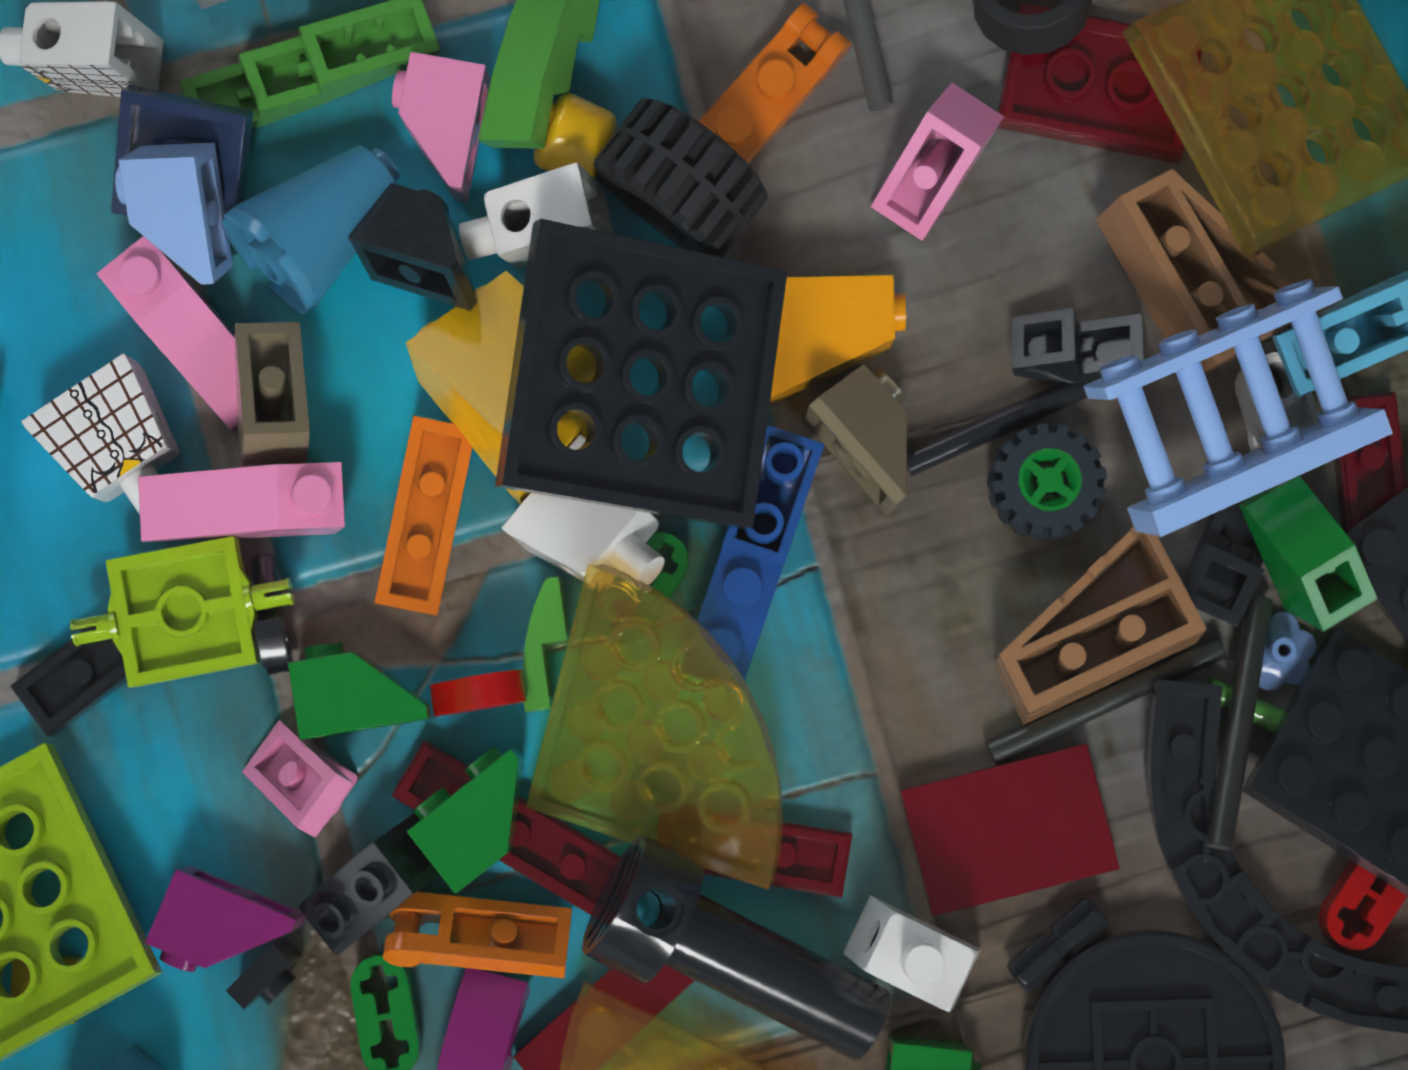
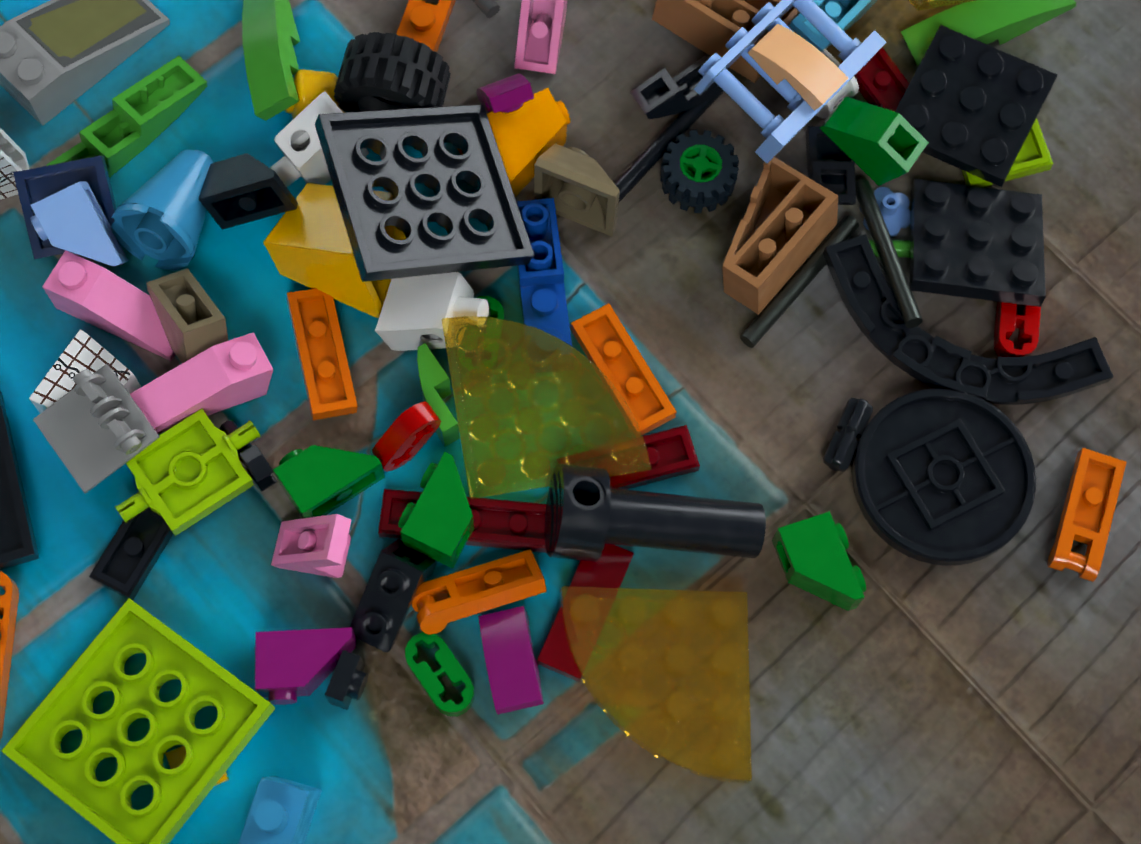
camera: 30 degrees left, 15 degrees down
(86, 507) = (96, 427): none -> light grey hinge
(443, 113) = (224, 115): bright pink slope -> none
(805, 720) = (617, 356): none -> orange plate
(829, 258) = (505, 94): none -> magenta slope
(911, 954) = (762, 472): white torso -> none
(1009, 829) = (781, 381): dark red tile -> none
(1244, 425) = (793, 58): none -> light nougat slope

